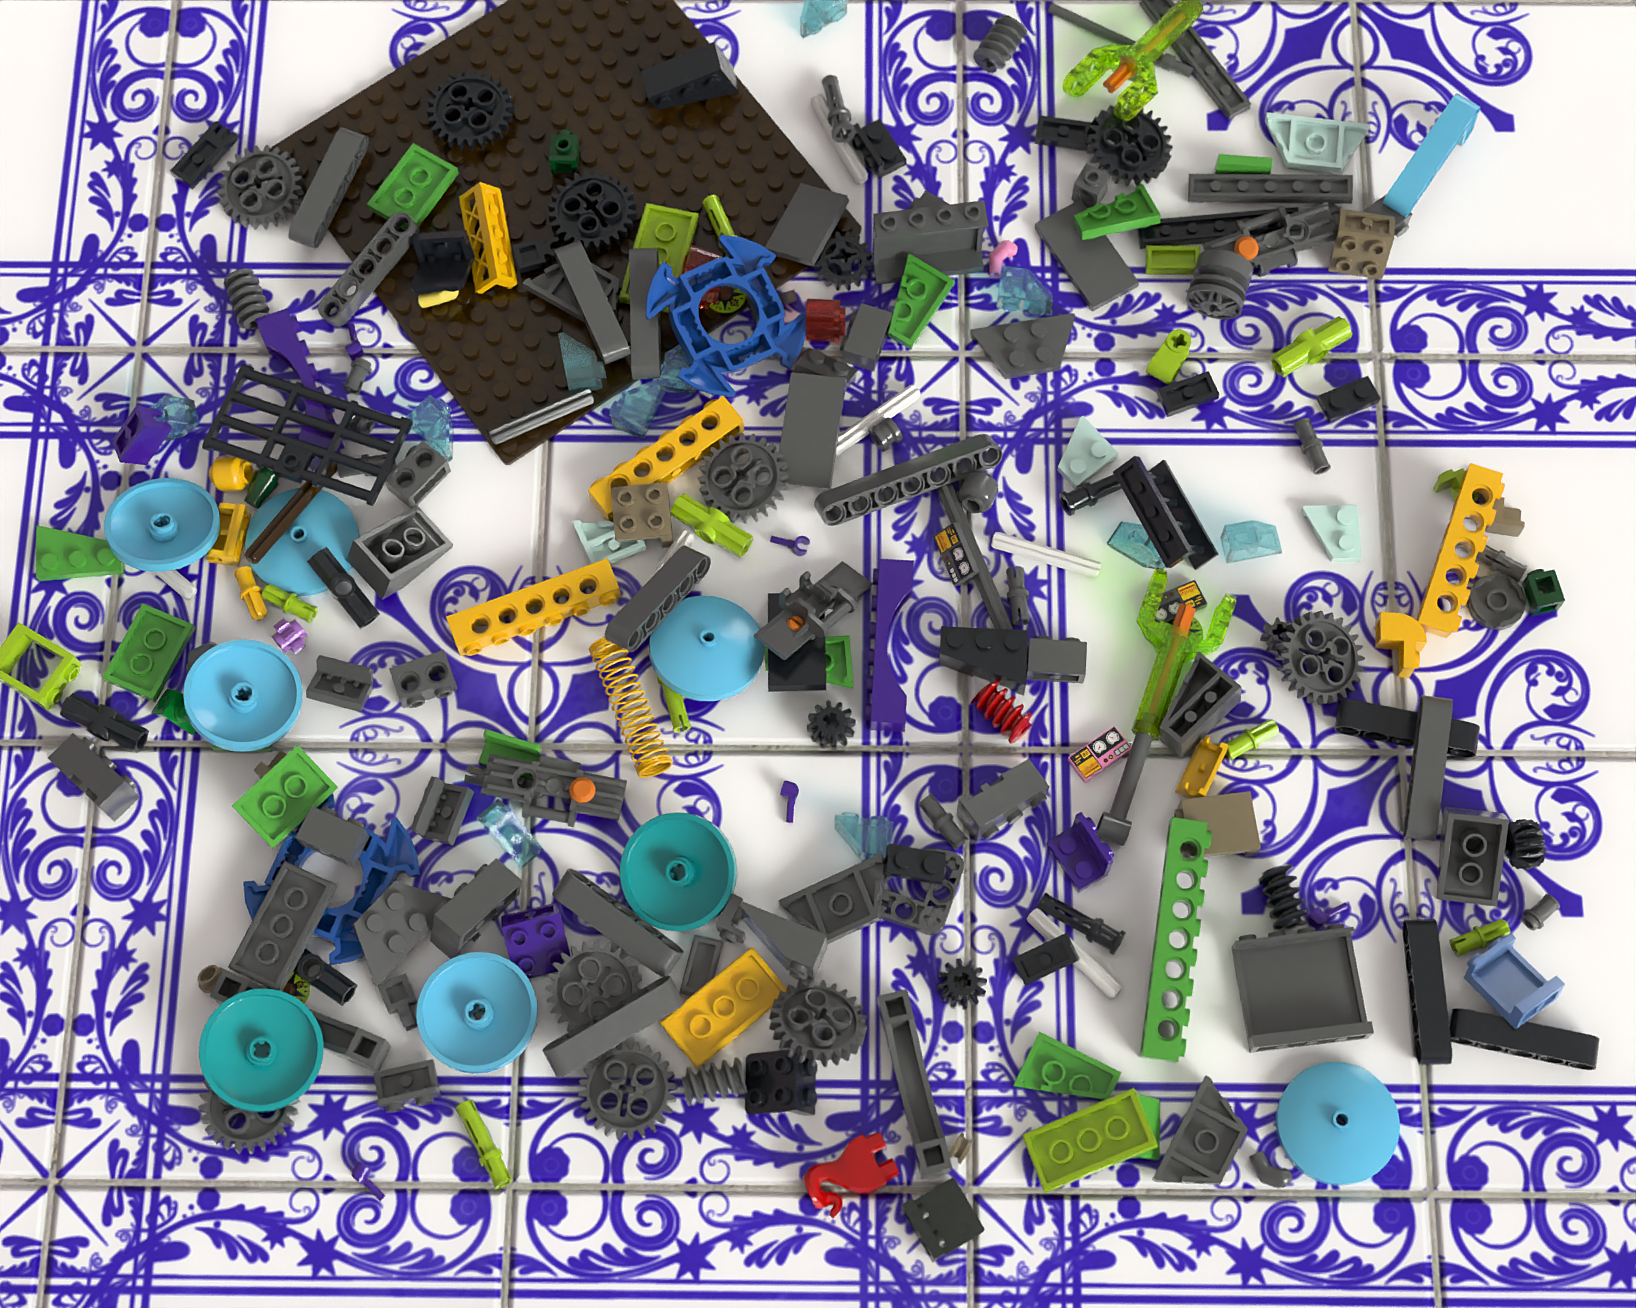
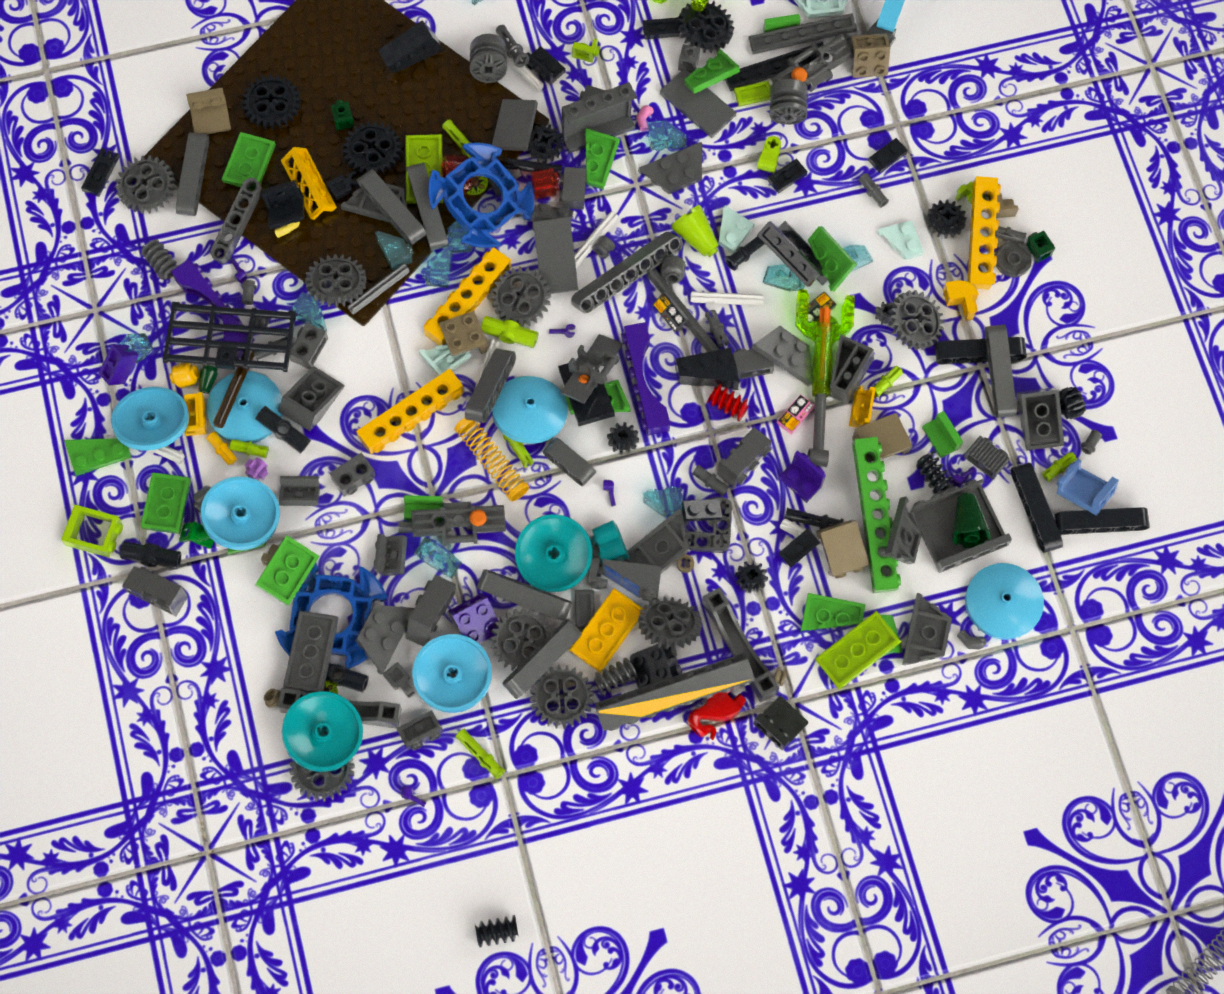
camera: 20 degrees left, 0 degrees up
(333, 836) = (326, 586): dark grey brick -> none
(379, 103) = (209, 111): none -> dark tan bracket
(475, 391) = (335, 280): none -> dark grey gear
(742, 740) = (569, 461): none -> dark grey beam
(765, 878) = (610, 542): none -> teal brick
(794, 1131) = (675, 691): none -> dark grey brick
(796, 118) = (488, 58): none -> dark grey wheel
(816, 291) = (530, 166): none -> black pin
(878, 940) = (691, 564): none -> dark tan bush
(941, 142) = (585, 52): none -> lime bracket
(1028, 444) = (696, 231): none -> lime cone
(1111, 659) = (787, 352): none -> dark grey wing
(1111, 978) = (843, 548): none -> dark tan panel
(1209, 982) = (904, 535): none -> dark grey wing
(1218, 532) = (832, 257): none -> bright green wing
(1311, 346) = (855, 127): lime piece -> none
(1313, 843) = (942, 435): none -> bright green panel
(1315, 989) = (969, 522): none -> dark green cone
(1372, 894) = (987, 457): none -> dark grey brick
(1398, 520) = (951, 213): none -> black gear

